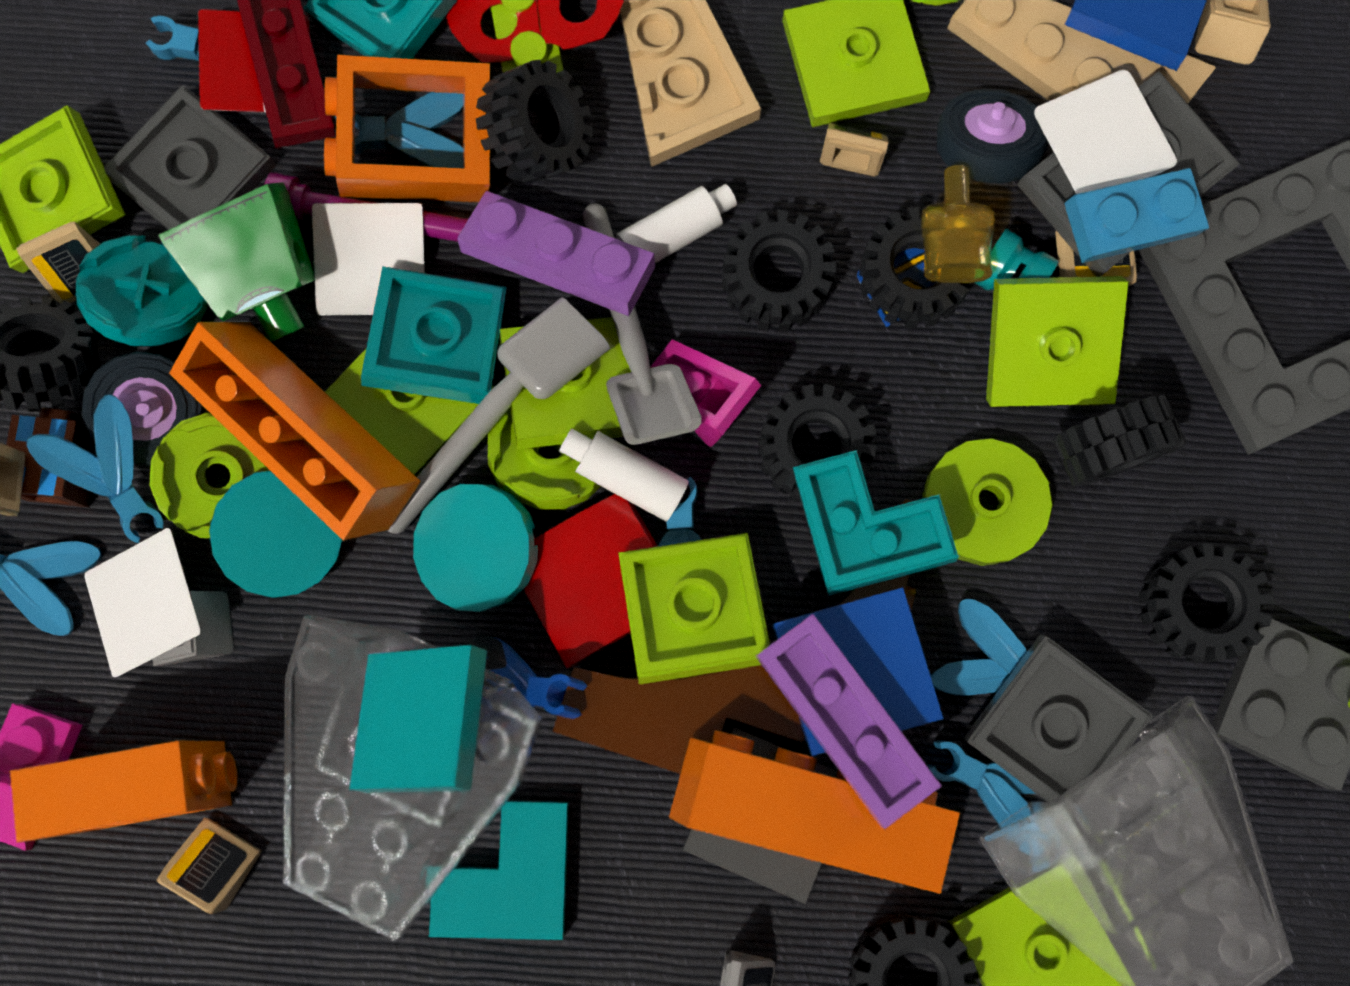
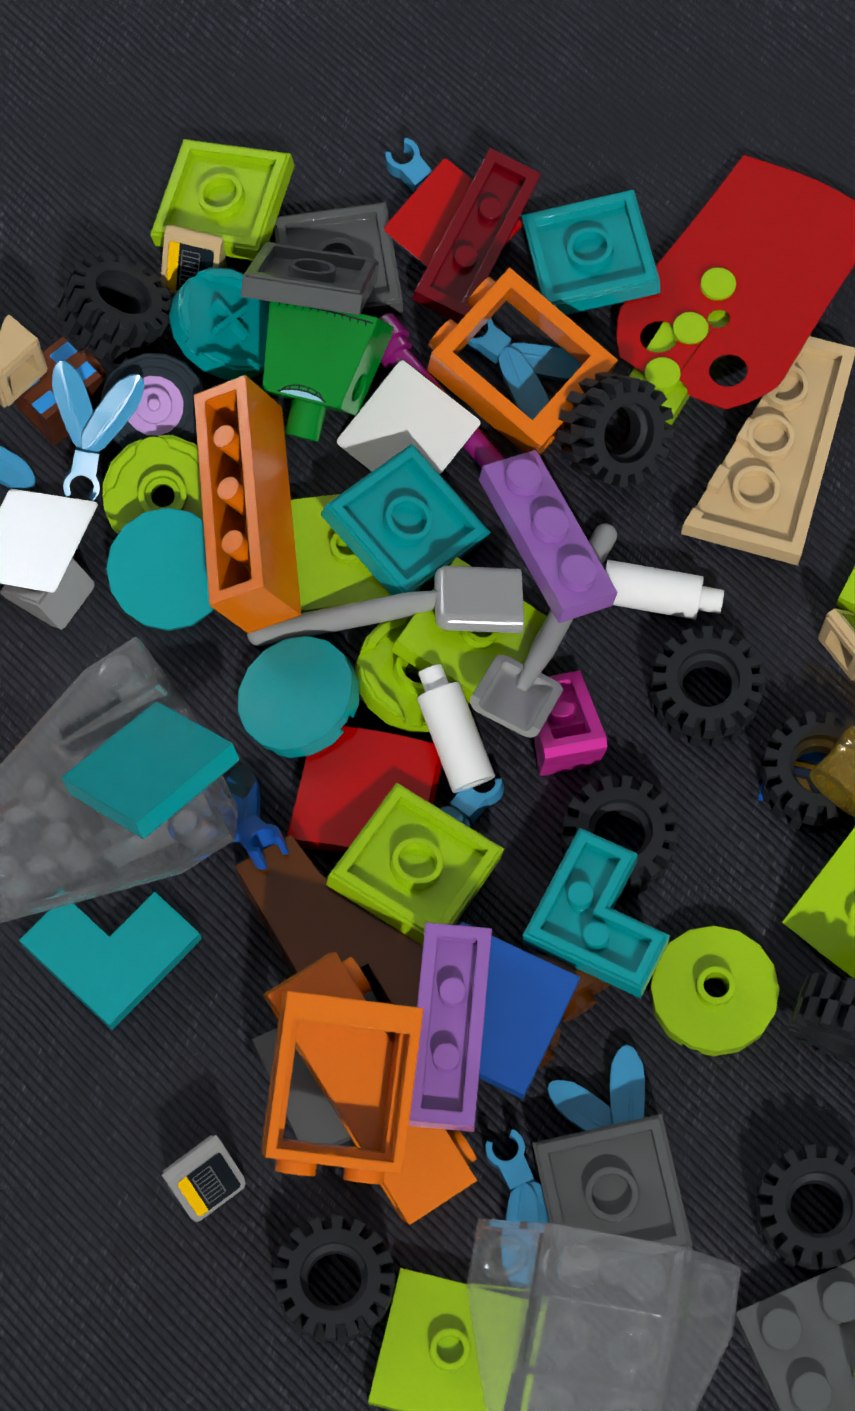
camera: 40 degrees right, 10 degrees down
(178, 197) = (310, 278): none -> dark grey tile
(768, 789) = (359, 1164): none -> orange window

